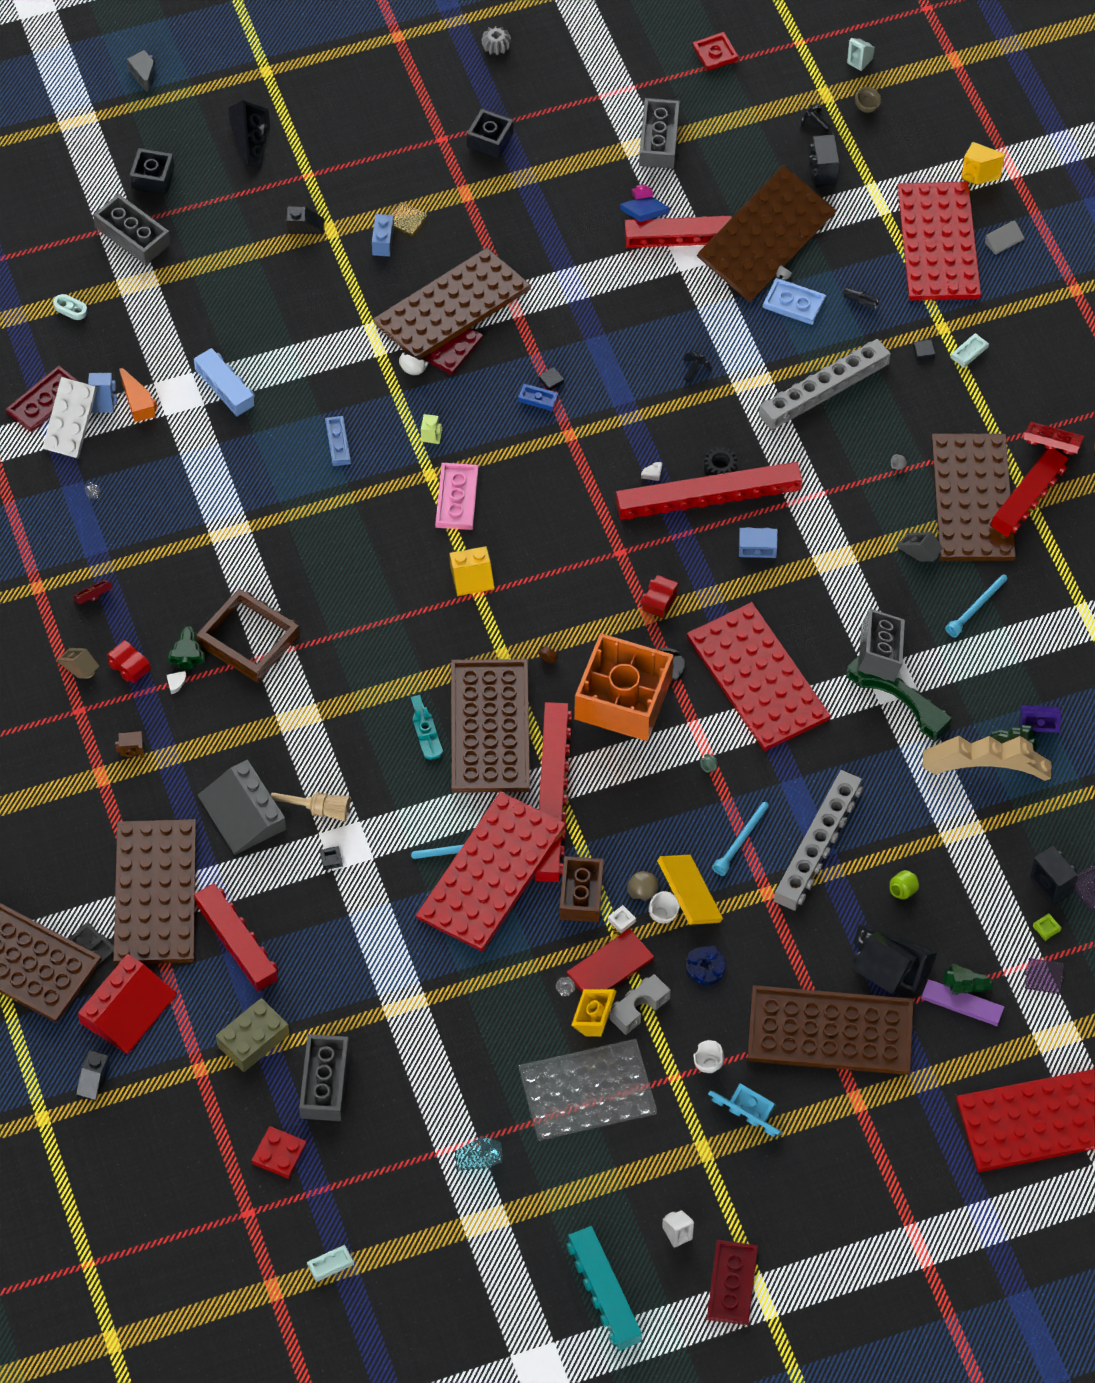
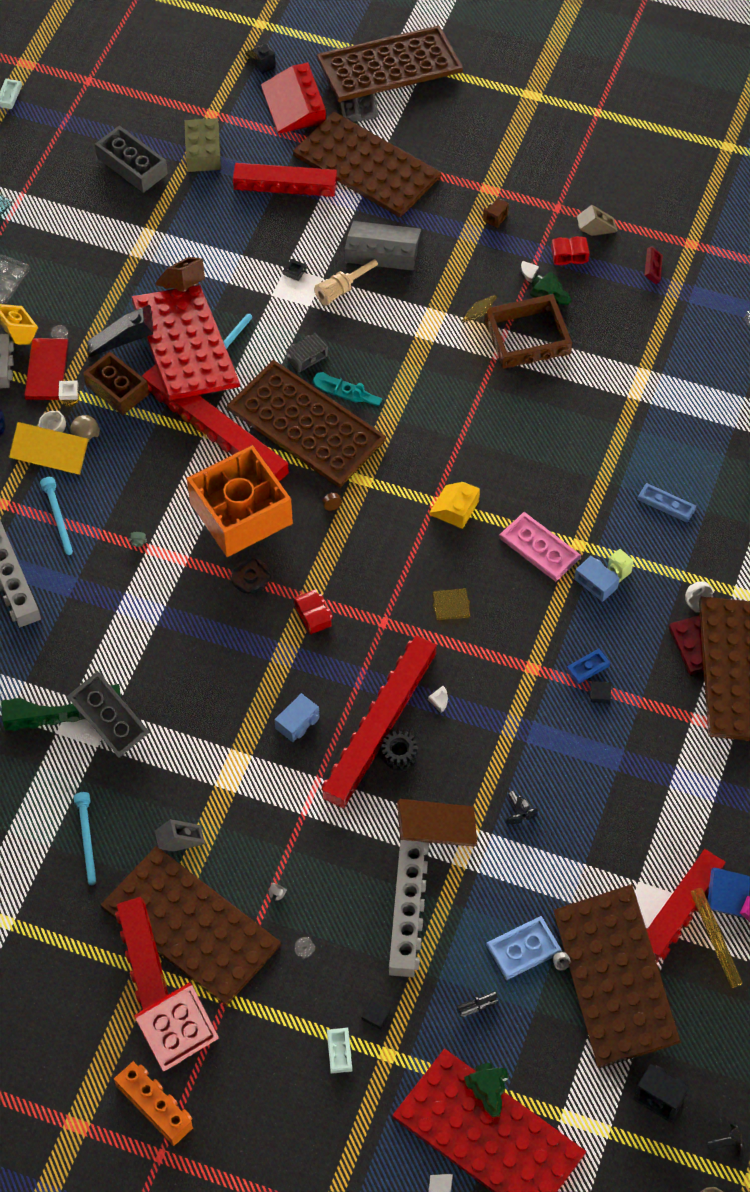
camera: 130 degrees right, 0 degrees up
(258, 680) = (479, 308): none -> clear yellow piece
(279, 1152) = (110, 115): red plate -> none
(416, 777) = (306, 352): none -> dark grey brick
(426, 924) = (183, 274): none -> reddish brown slope
(455, 437) = (596, 578): none -> medium blue brick
(526, 922) = (125, 330): none -> black wedge
(563, 519) = (451, 604): none -> clear yellow piece
(687, 193) = (716, 937): none -> clear yellow axle
(758, 676) = (180, 630): red plate -> none
(759, 395) = (437, 822): none -> reddish brown tile
(913, 249) = (488, 1086): none -> dark green rock
(924, 416) = (304, 941): none -> clear plate

